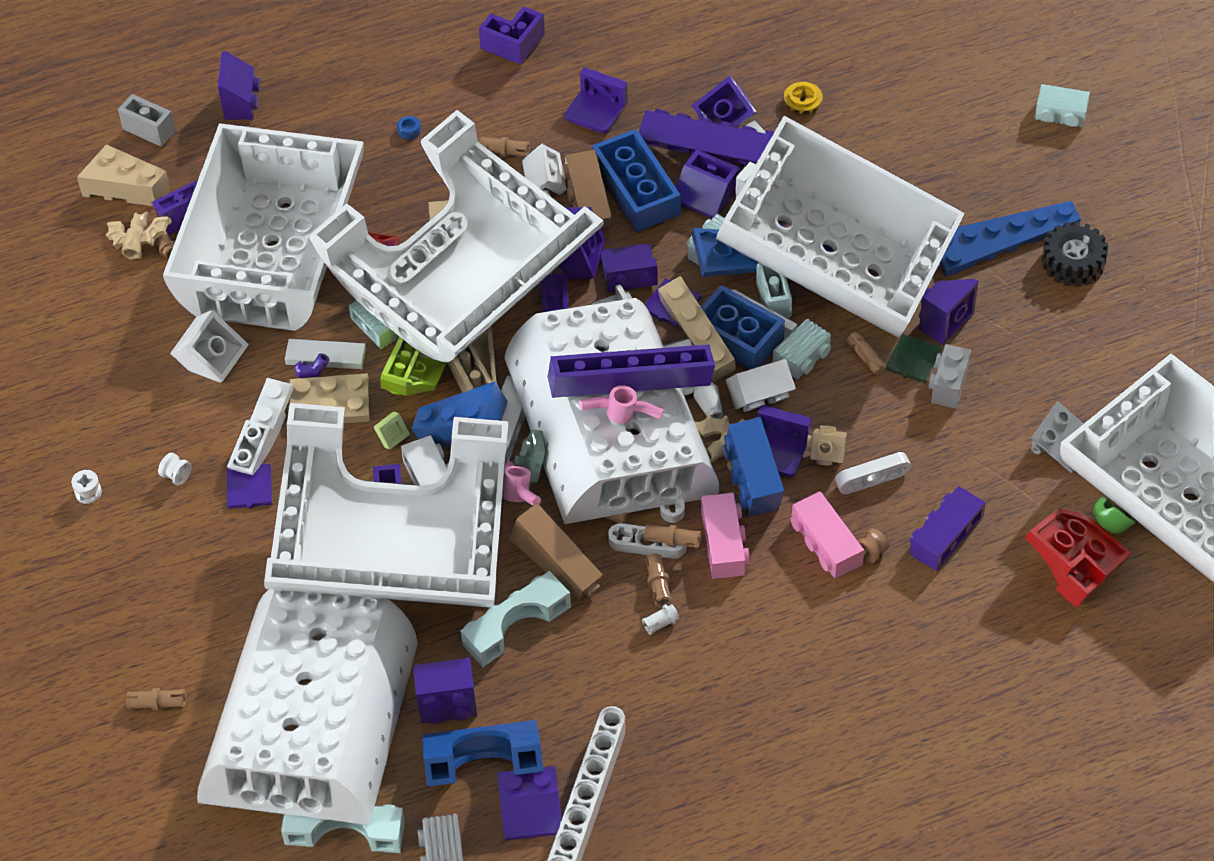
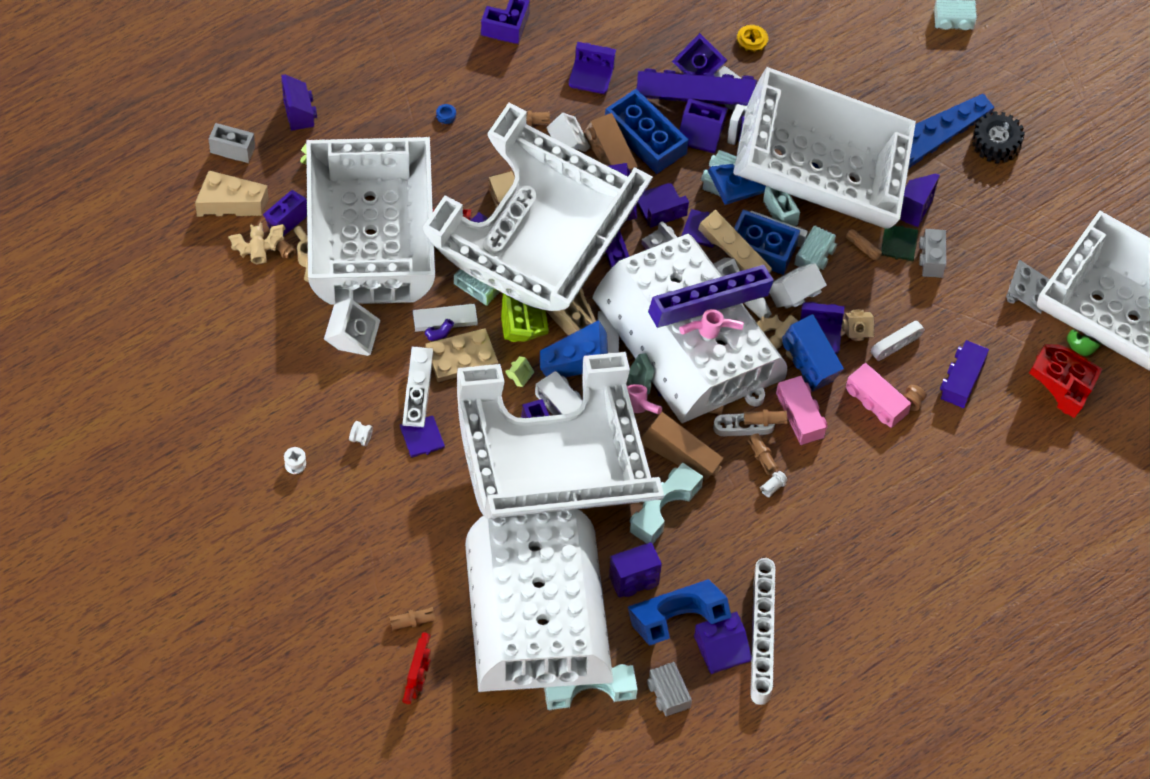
camera: 20 degrees left, 5 degrees up
(134, 760) = (419, 665): none -> red plate

